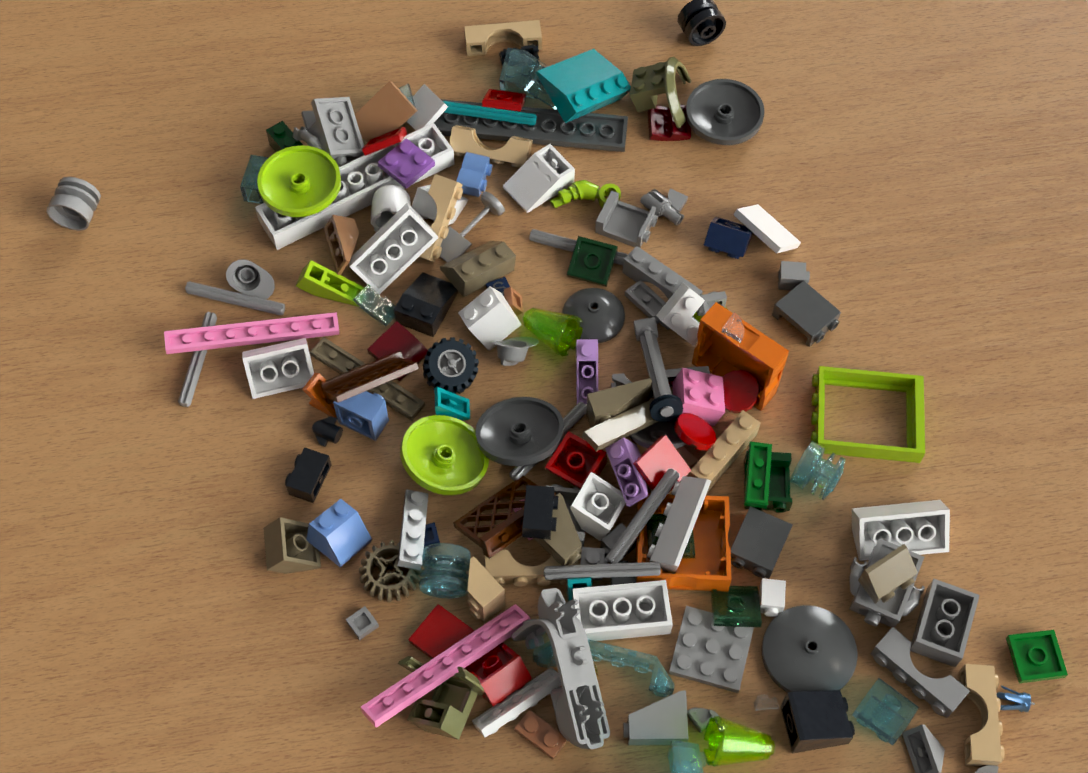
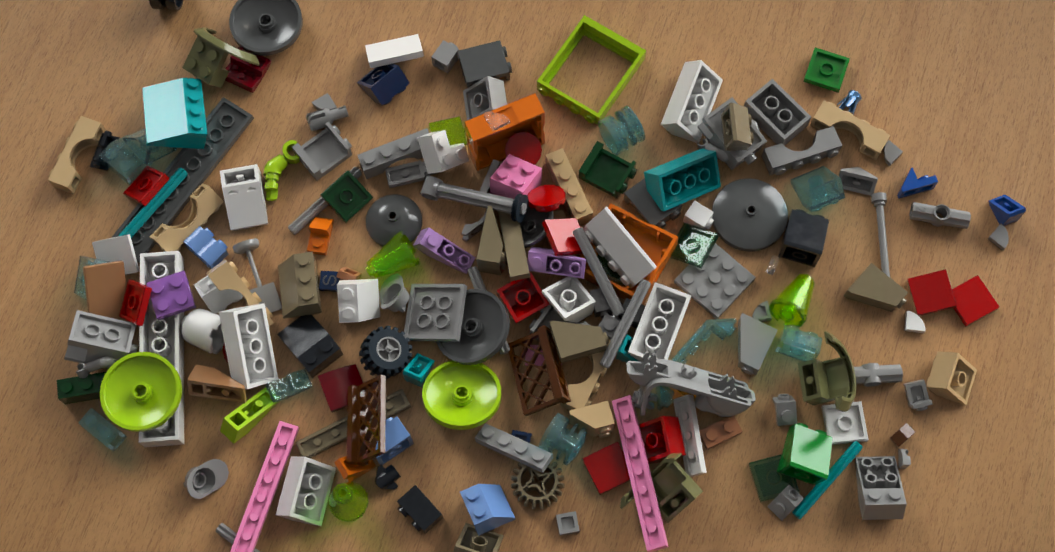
camera: 60 degrees left, 10 degrees up
(235, 298) = (213, 500): light grey axle -> none
(287, 405) = (348, 501): none -> clear neon green cone
(516, 391) = (435, 312): none -> light grey plate
(539, 512) = (562, 343): black brick -> none
(543, 259) = (320, 235): none -> orange slope
(710, 299) = (436, 123): light grey bracket -> none
(758, 475) = (603, 173): green tile -> none
(778, 327) = (484, 96): none -> light grey slope
(802, 557) = (683, 178): none -> teal slope

